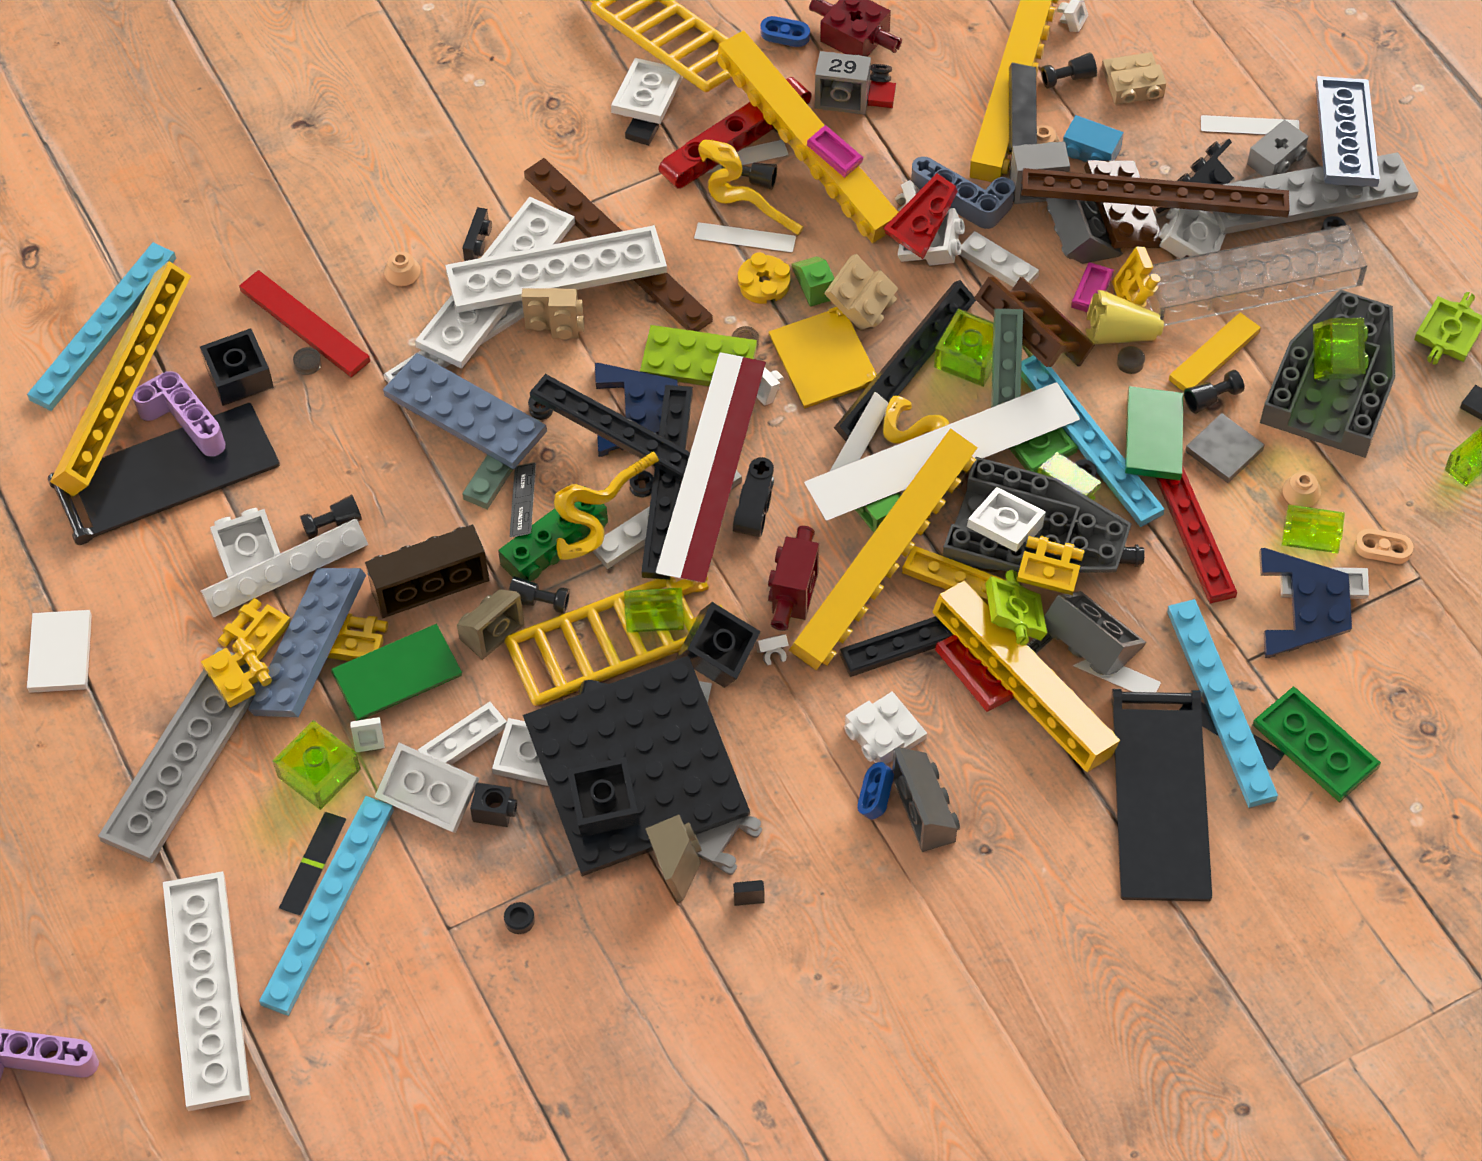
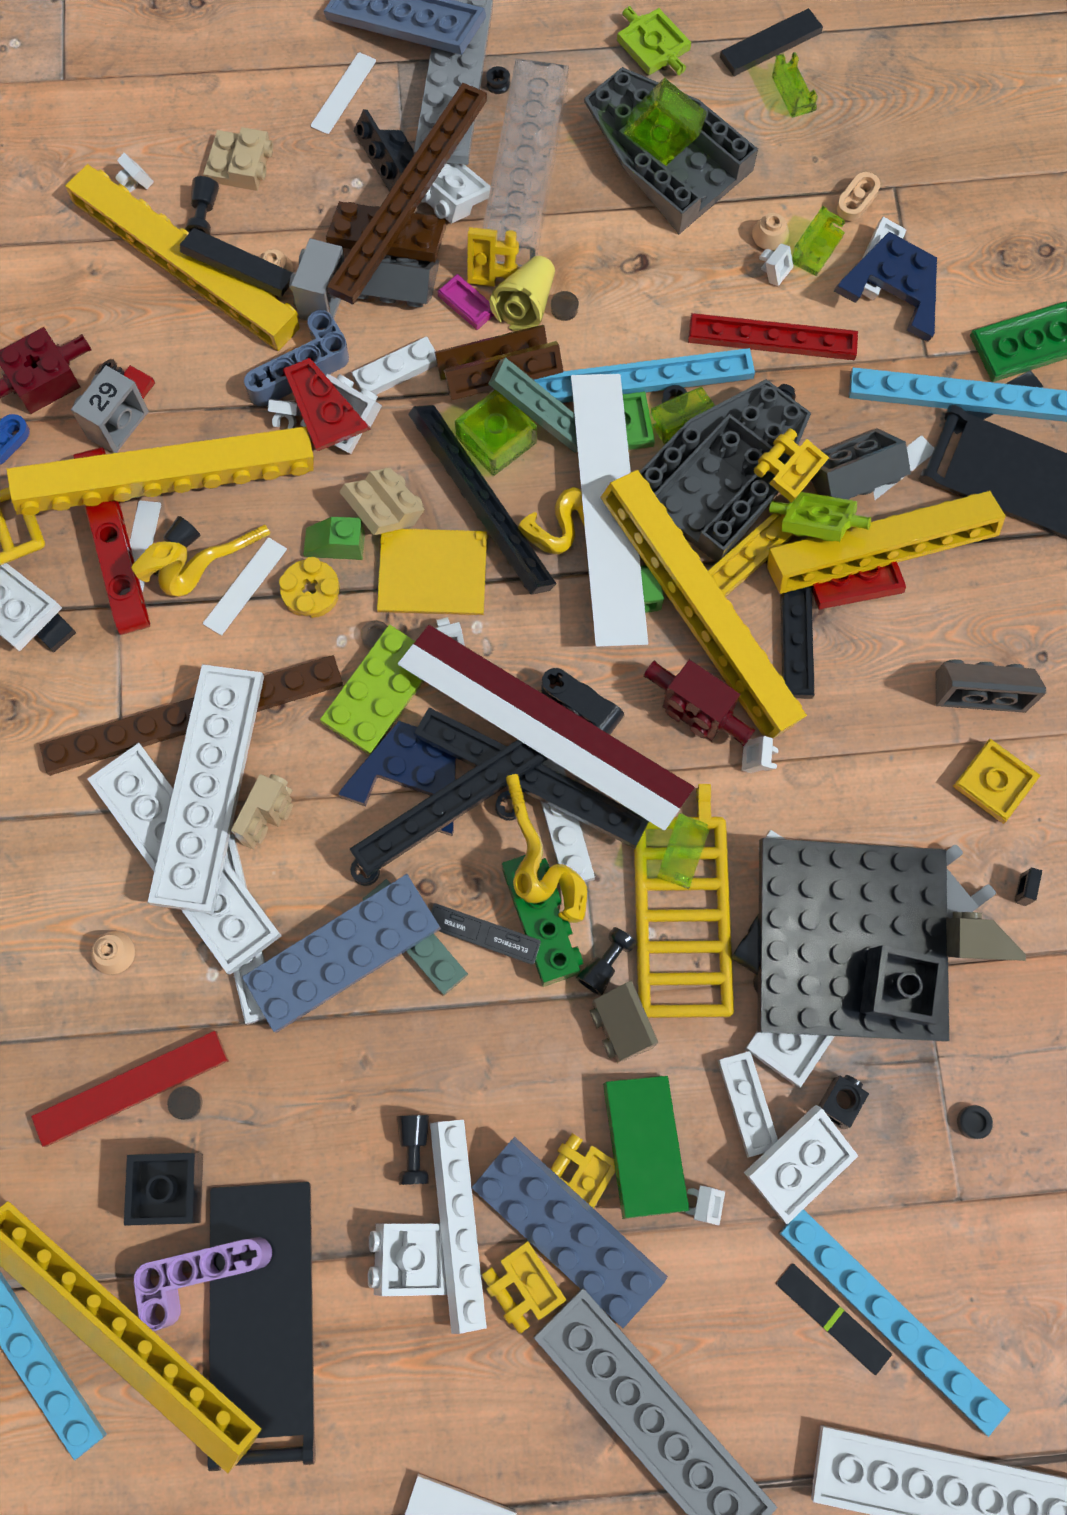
camera: 70 degrees left, 15 degrees up
(229, 678) = (586, 1338): yellow plate -> none
(316, 764) = (733, 1276): clear neon green brick -> none
(427, 571) = (539, 1067): dark brown brick -> none
(479, 229) = (102, 846): black plate -> none
(719, 644) = (749, 804): black brick -> none
(835, 151) = (205, 449): dark pink tile -> none
(839, 840) = (996, 781): none -> yellow plate
(862, 432) = (552, 577): white sticker -> none
(875, 790) = (955, 726): blue plate -> none
(883, 728) = (888, 690): white plate -> none
(1007, 519) = (723, 481): white plate -> none
(1092, 140) = (298, 223): dark azure brick -> none
(1154, 433) = (662, 320): tile -> none
(1206, 394) = (637, 261): black piece -> none
(1215, 352) = (590, 235): yellow tile -> none
(1224, 448) = (697, 273): flat silver tile -> none
(1267, 503) = (777, 263): none -> white tile
(1278, 150) = (391, 80): light grey brick -> none

